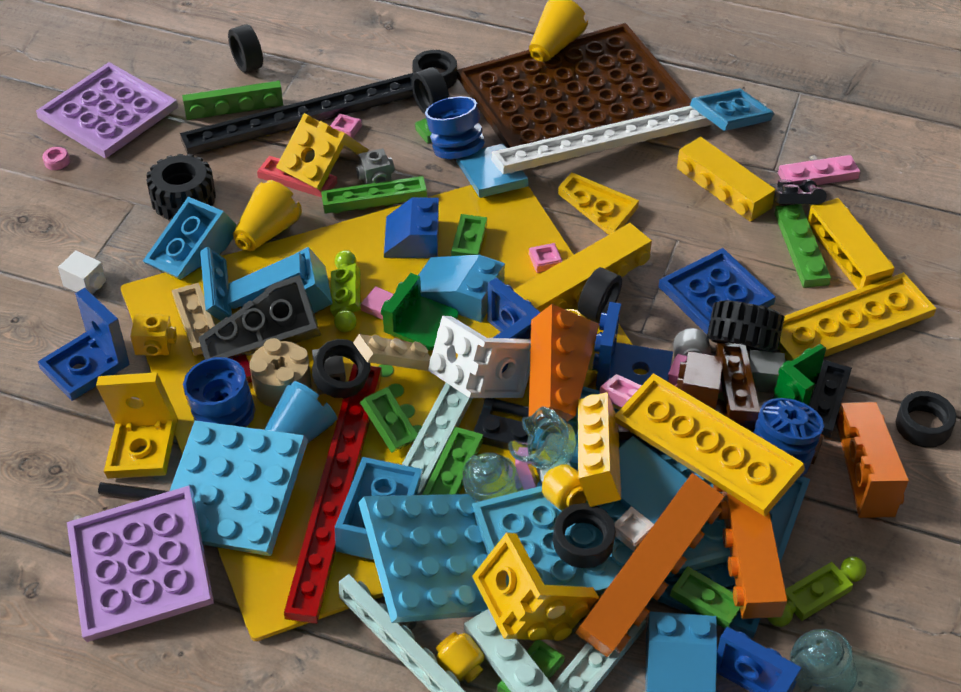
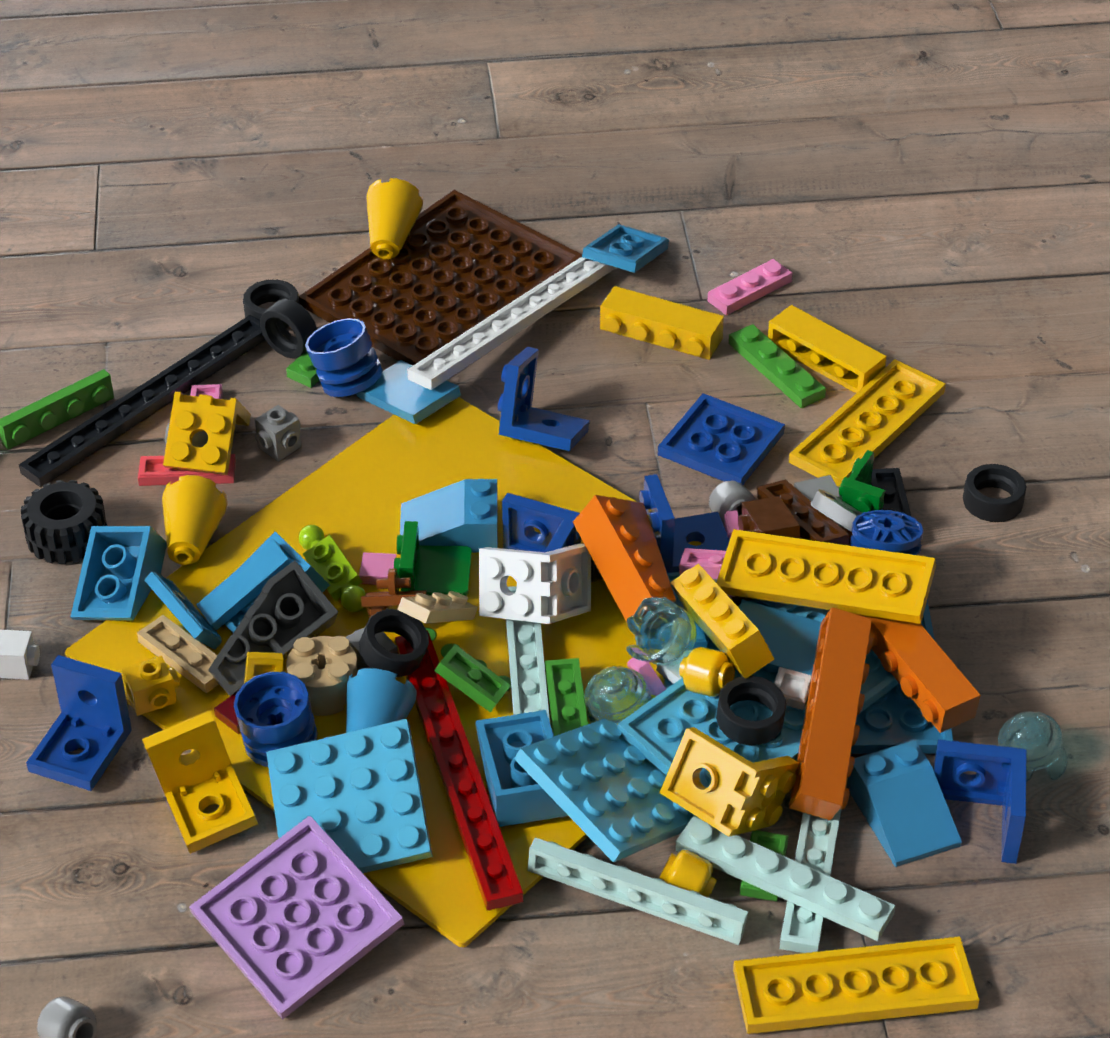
camera: 25 degrees left, 5 degrees down
(127, 491) = (228, 856): black piece -> none
(236, 350) = (261, 662): none -> yellow plate
(245, 48) = (37, 331): black tyre -> none
(369, 327) = (382, 600): none -> dark orange hips
(373, 194) = (292, 459): bright green plate -> none
(413, 229) = (366, 479): blue slope -> none
(469, 235) = (431, 466): bright green plate -> none
(499, 430) = (595, 649): black plate -> none
(544, 257) = (525, 463): bright pink tile -> none
(564, 206) = (528, 423): none -> blue bracket
(565, 281) = (585, 455): yellow brick -> none
(597, 202) = (553, 390): yellow wing -> none
(598, 291) = (615, 473): black tyre -> none
(705, 597) = (894, 727): bright green plate -> none
(746, 325) = (780, 457): black tyre -> none
(765, 383) = (835, 509): none -> light grey beam
(802, 193) = (748, 312): black plate -> none
(820, 589) = (992, 681): lime plate -> none
(871, 460) = (970, 548): orange wedge -> none

